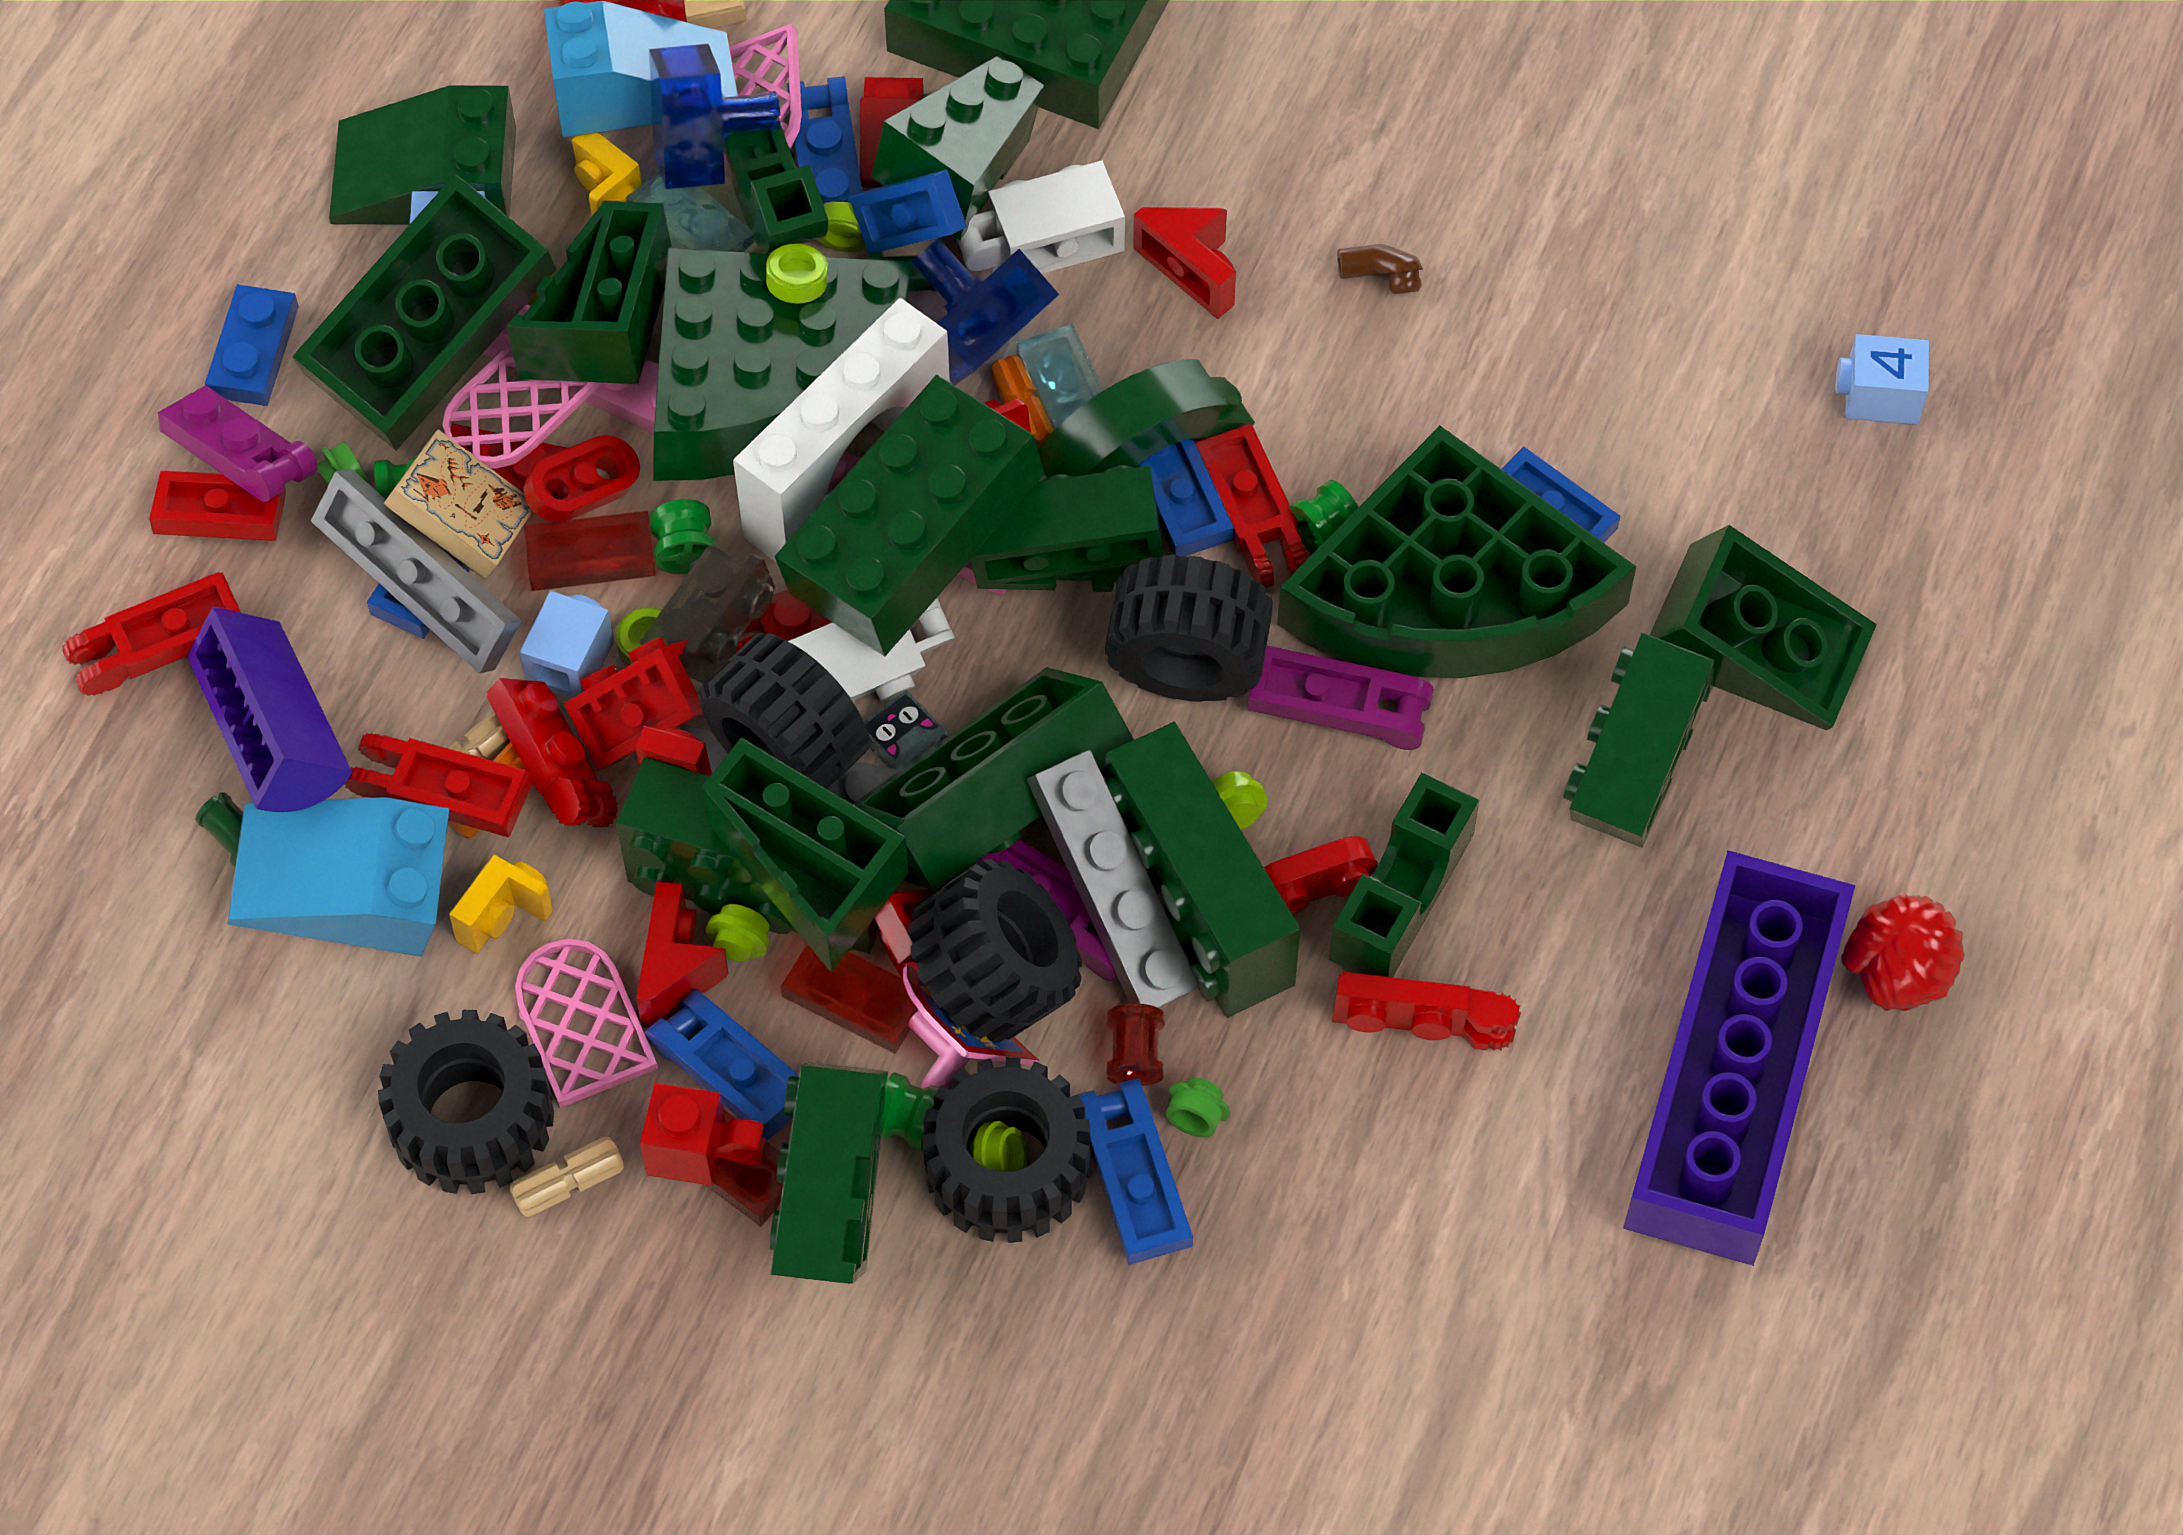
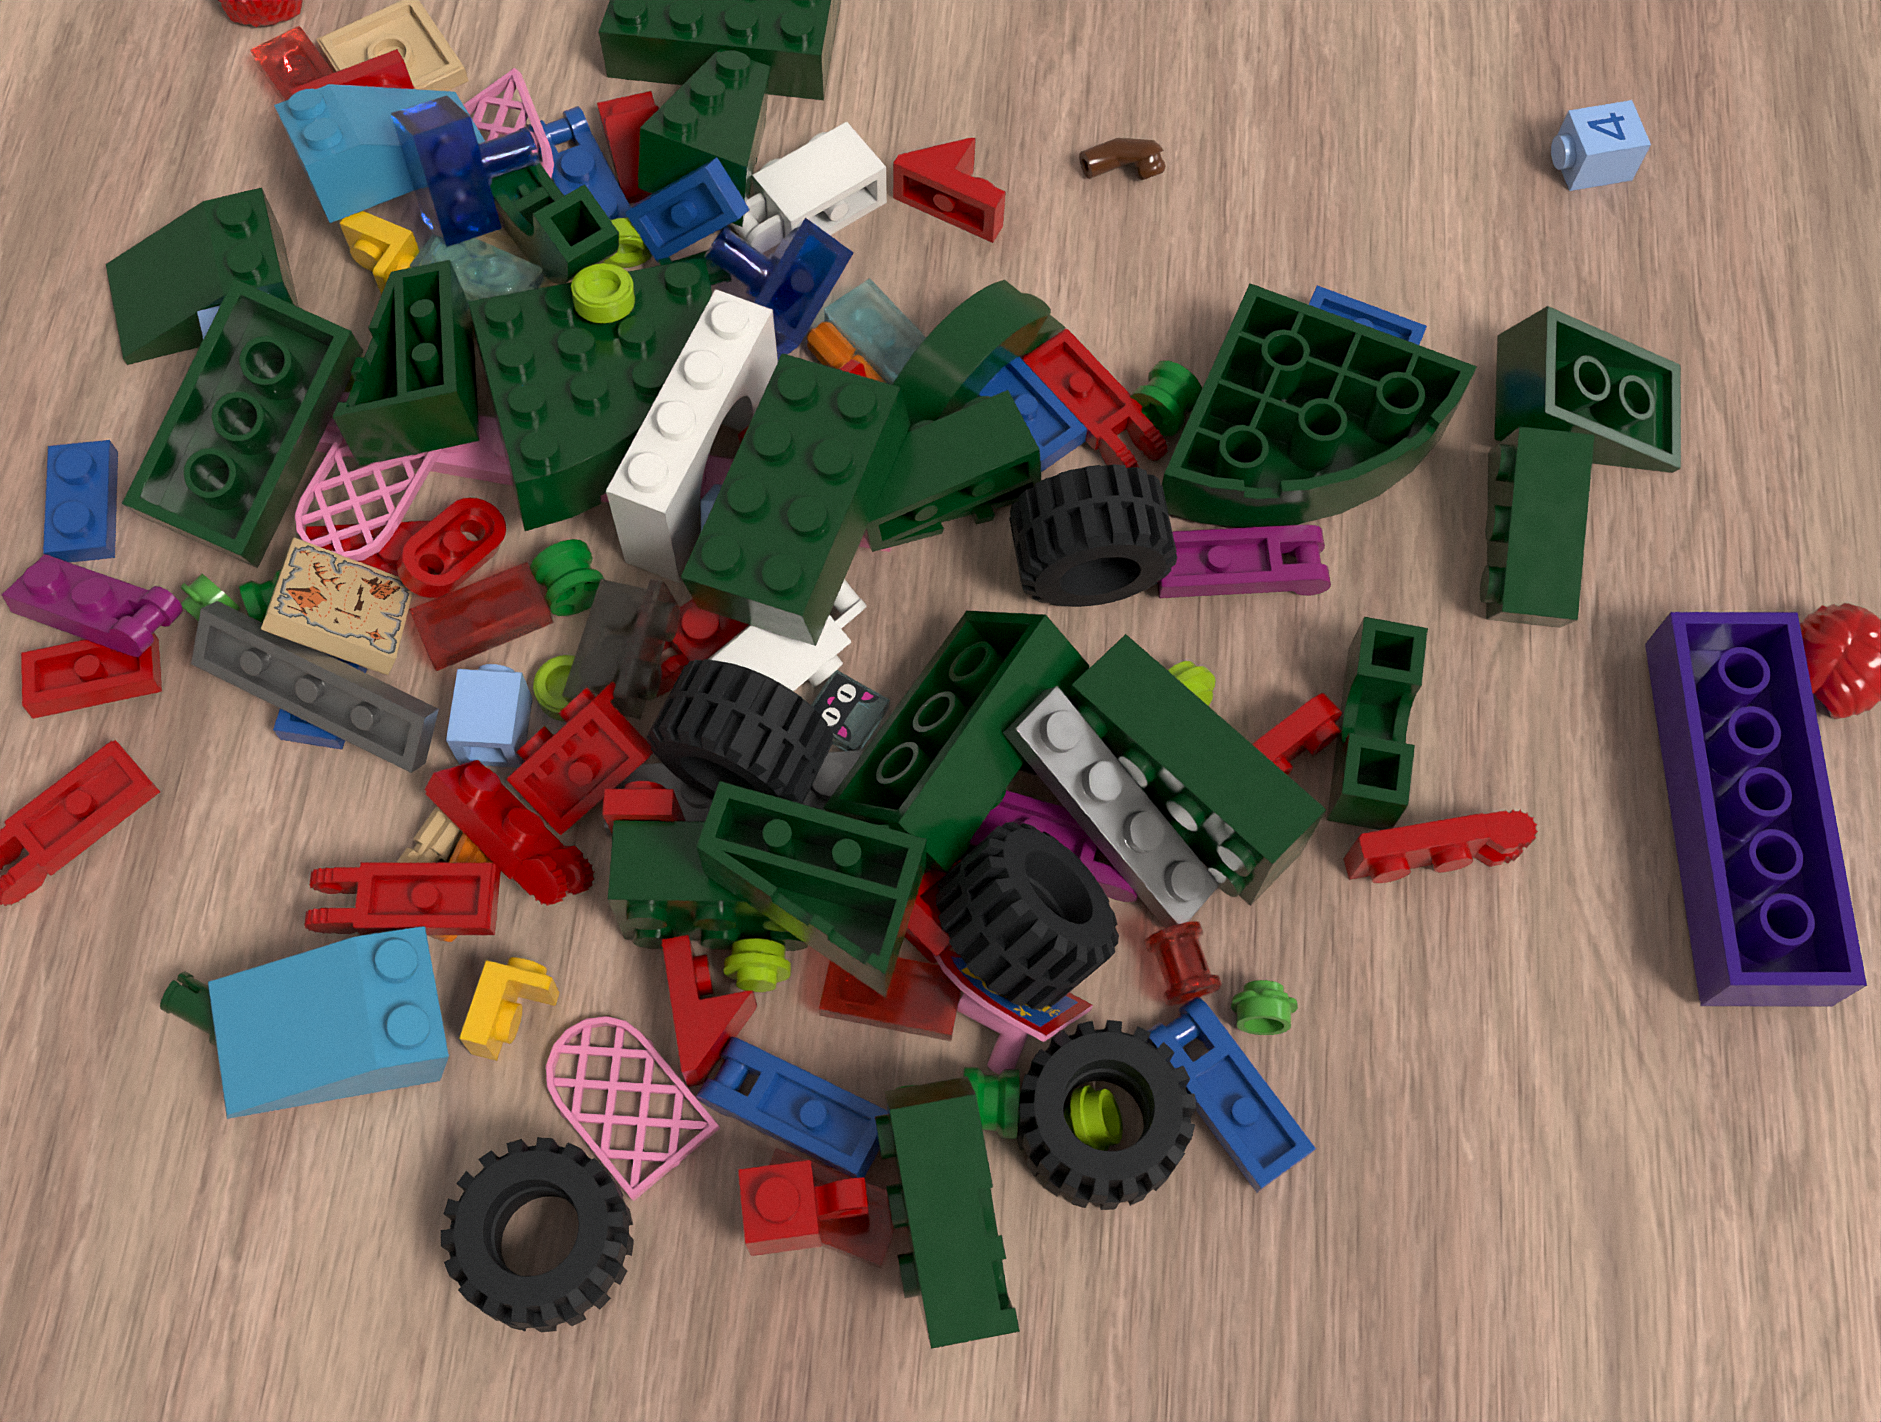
camera: 20 degrees left, 5 degrees up
(267, 712) = (204, 878): dark purple brick -> none
(552, 1182) = (655, 1288): tan piece -> none

